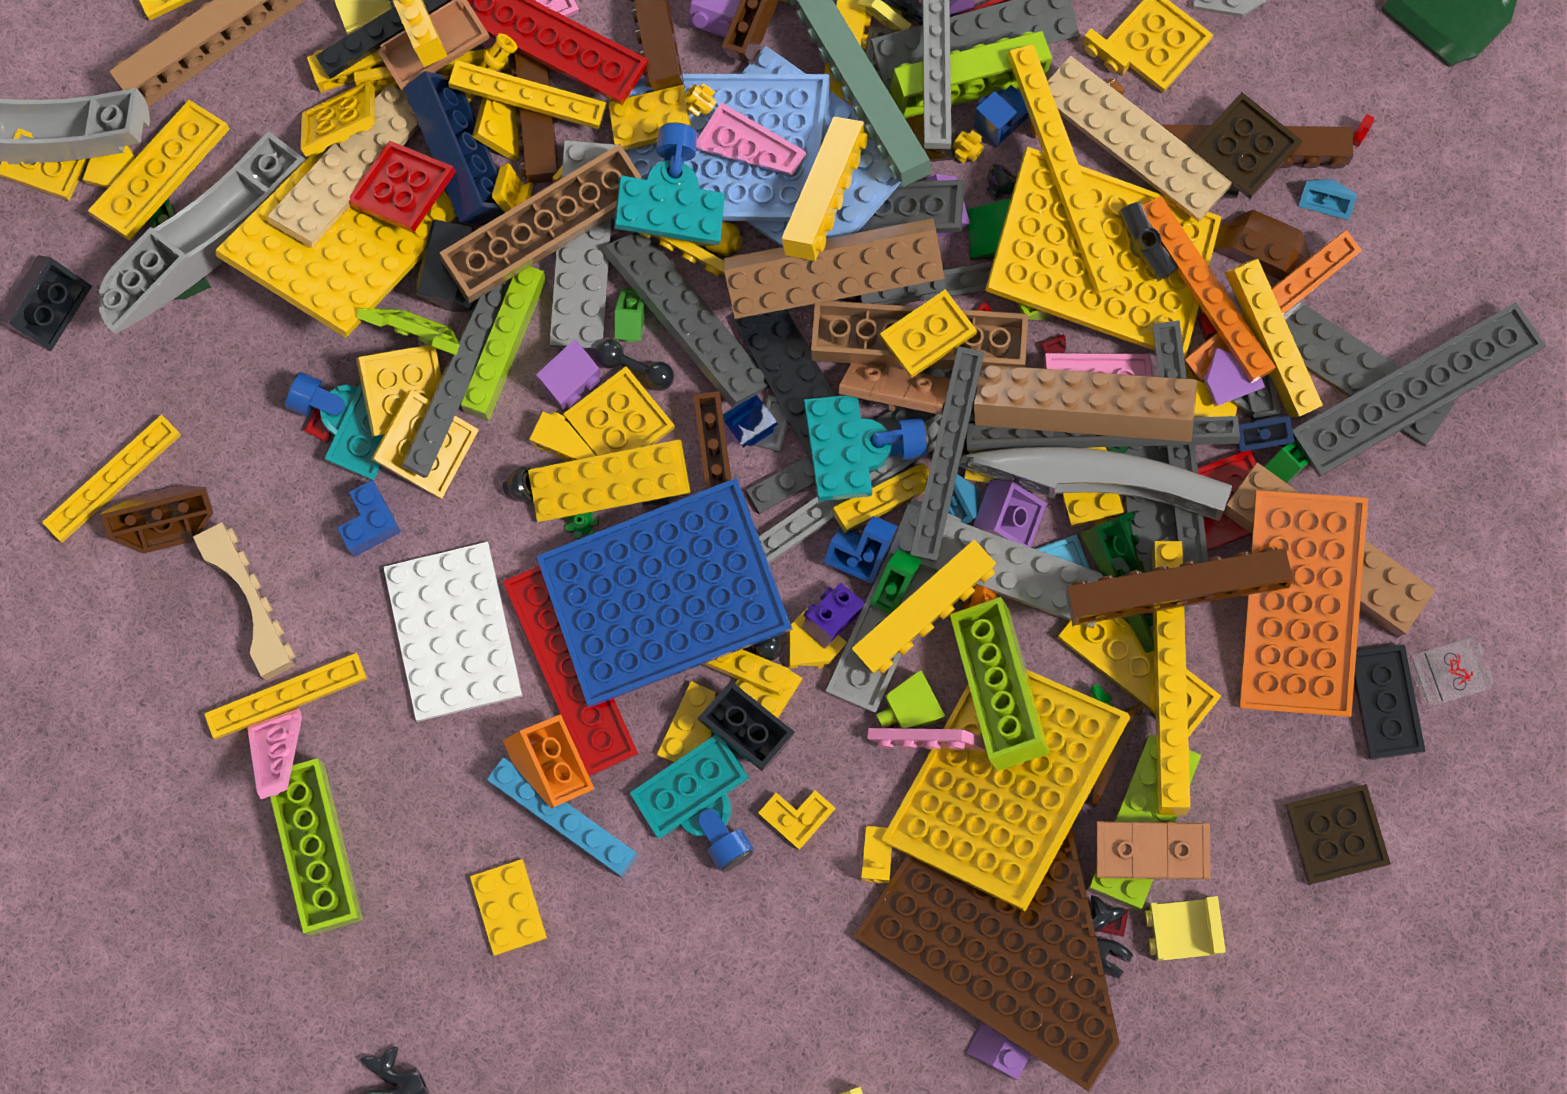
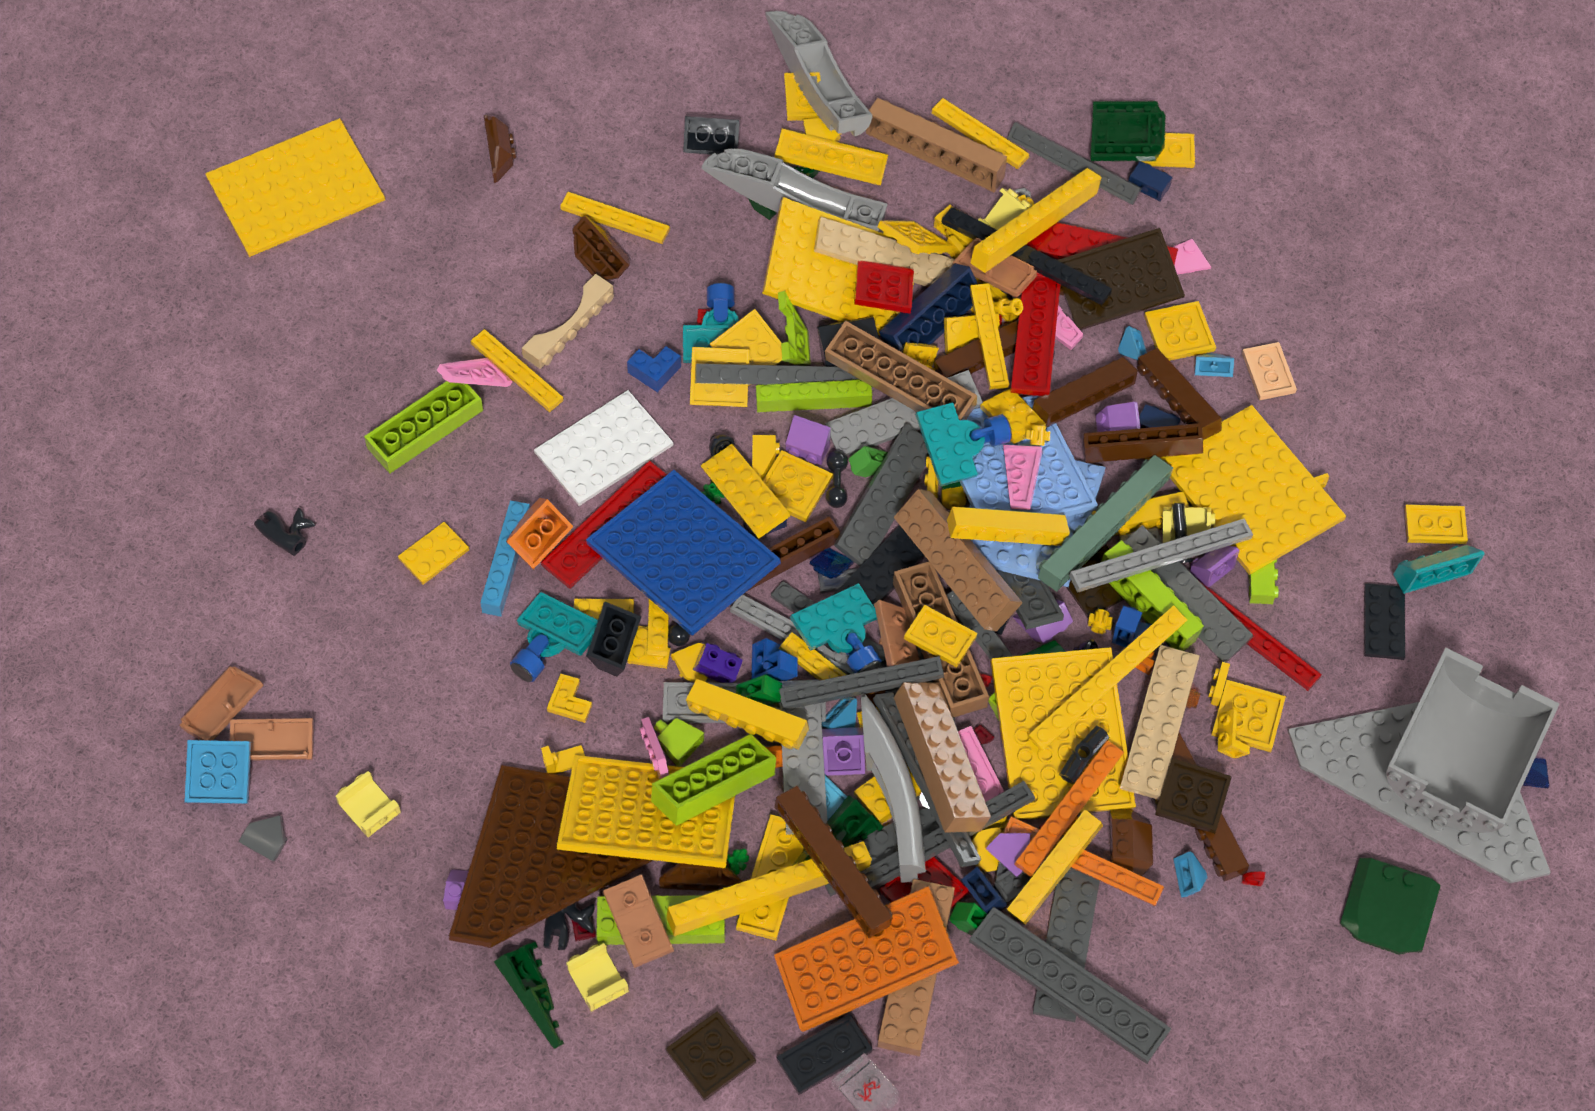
camera: 60 degrees right, 15 degrees down
(1167, 1015) = (531, 988): none -> dark green wedge
(1178, 71) = (1226, 736): none -> yellow bracket

